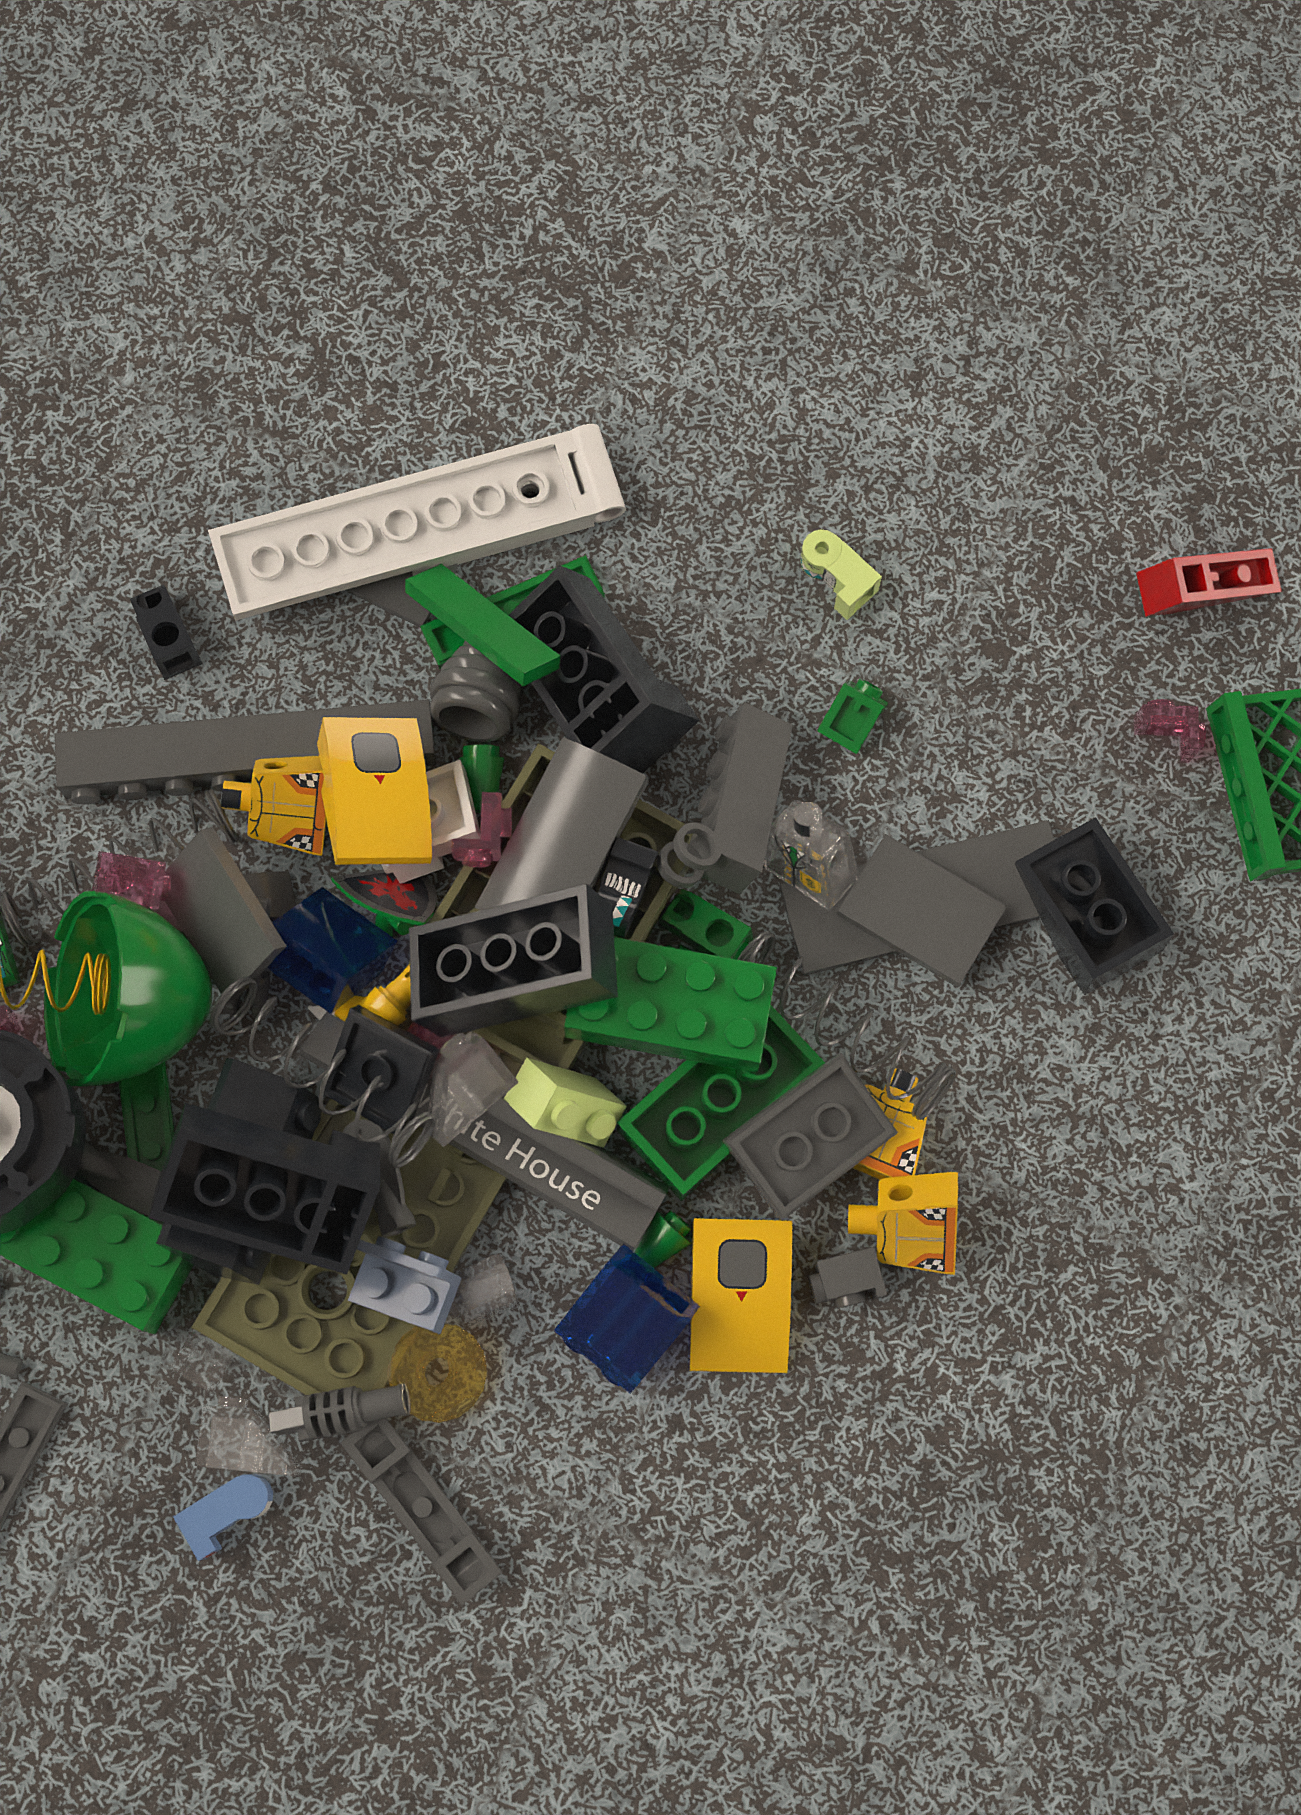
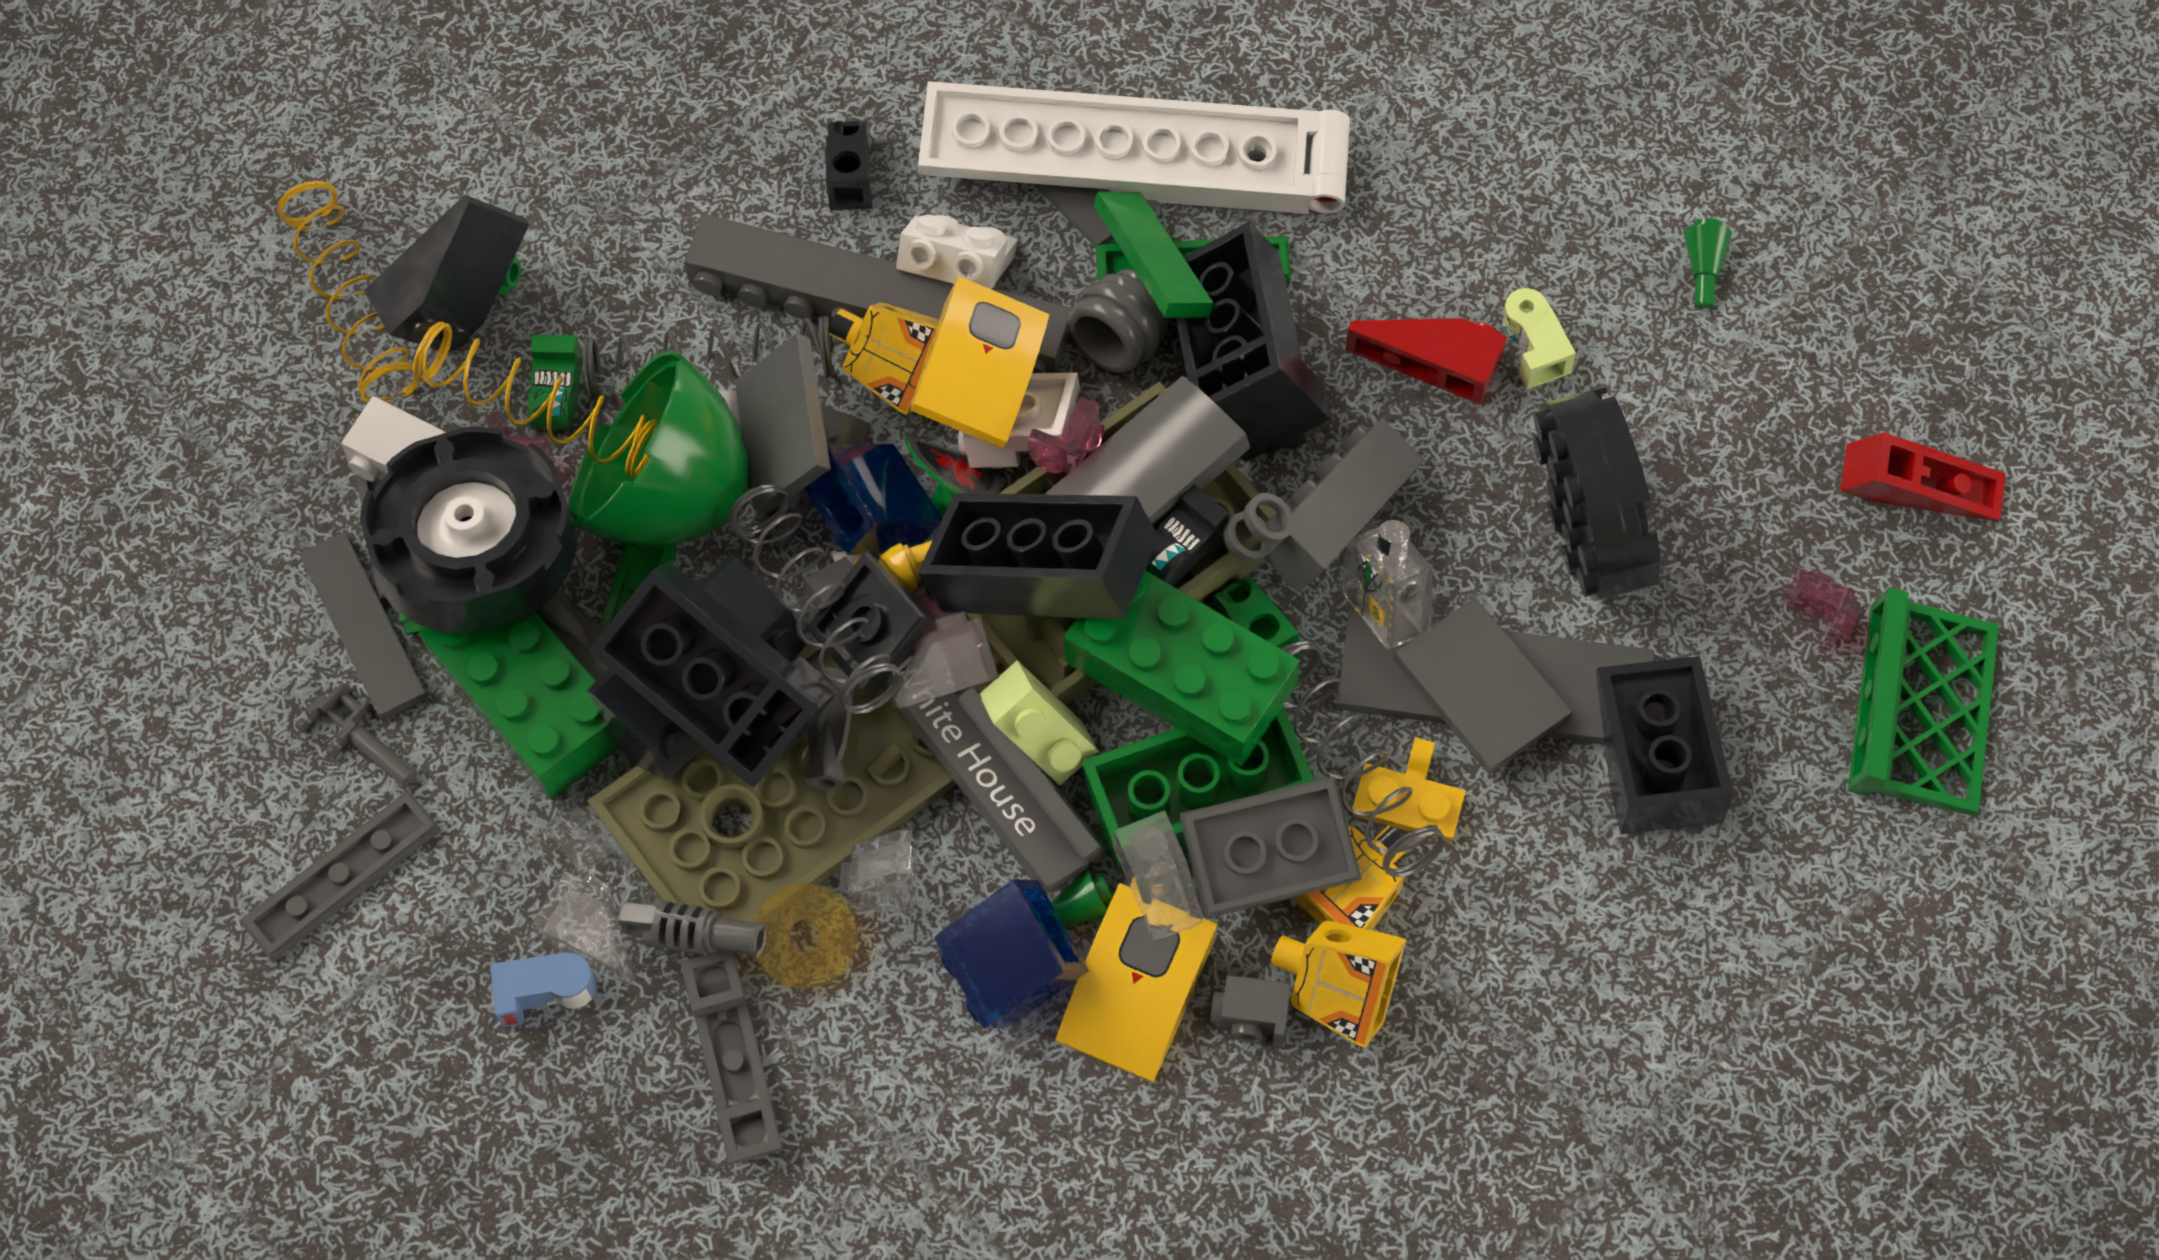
camera: 30 degrees right, 10 degrees down
(132, 878) = (717, 360): clear pink bracket -> none
(301, 684) = (946, 250): none -> white plate
(403, 1286) = (807, 832): sand blue bracket -> none
(483, 770) = (1101, 387): green cone -> none
(730, 1204) = (1158, 875): none -> clear slope
(767, 616) = (1437, 351): none -> red slope
(853, 714) = (1492, 476): green bracket -> none
(884, 1032) = (1427, 805): none -> yellow plate
(949, 435) = (1706, 248): none -> green cone
(961, 707) = (1597, 494): none -> black piece

